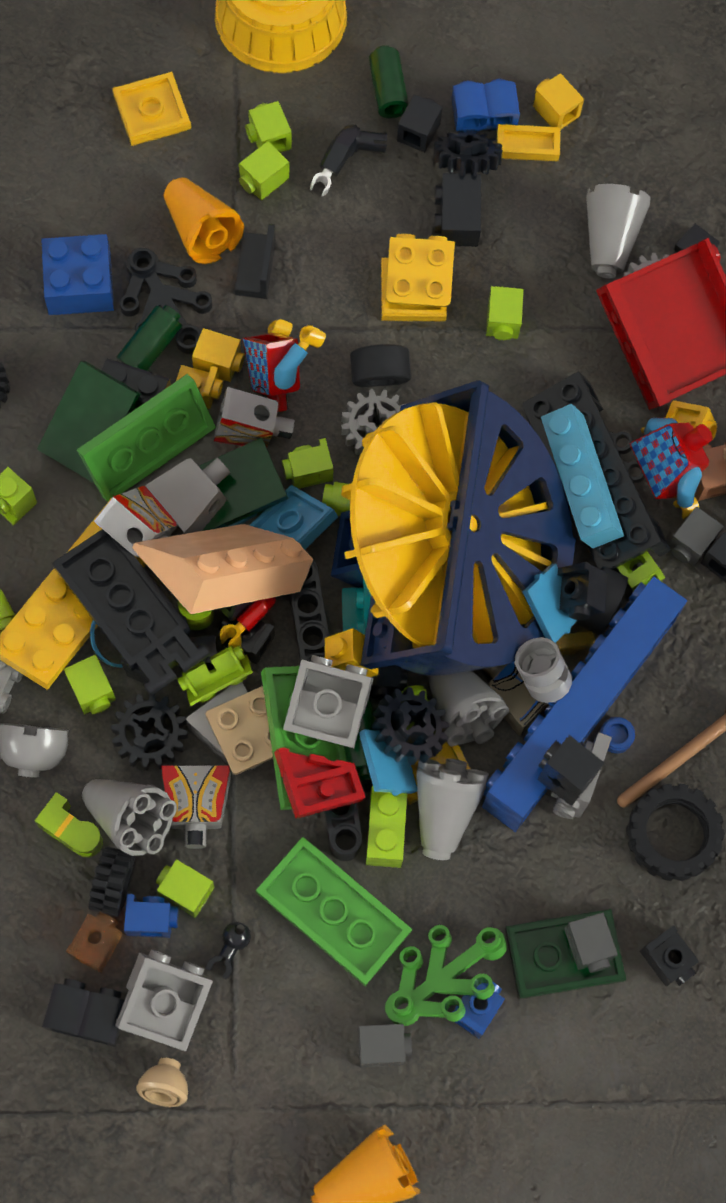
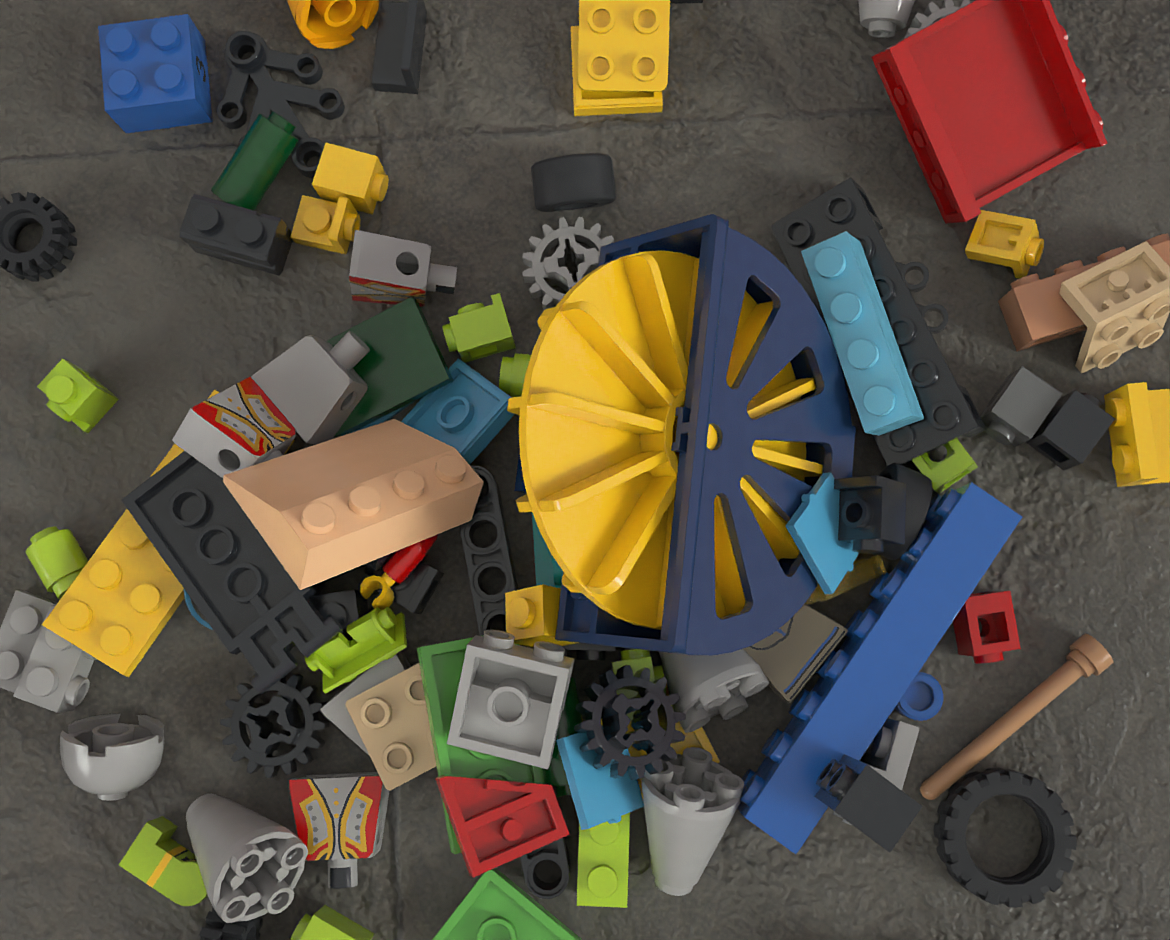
camera: 10 degrees right, 10 degrees up
(86, 410) = (174, 284): dark green tile -> none
(90, 685) = (192, 661): lime brick -> none
(147, 438) = (252, 305): bright green plate -> none
(276, 357) = (427, 182): torso -> none
(504, 312) = (743, 96): lime brick -> none
(543, 670) = (818, 636): light grey wheel -> none
(669, 674) = (998, 623): none -> red brick
(673, 459) = (990, 300): torso -> none

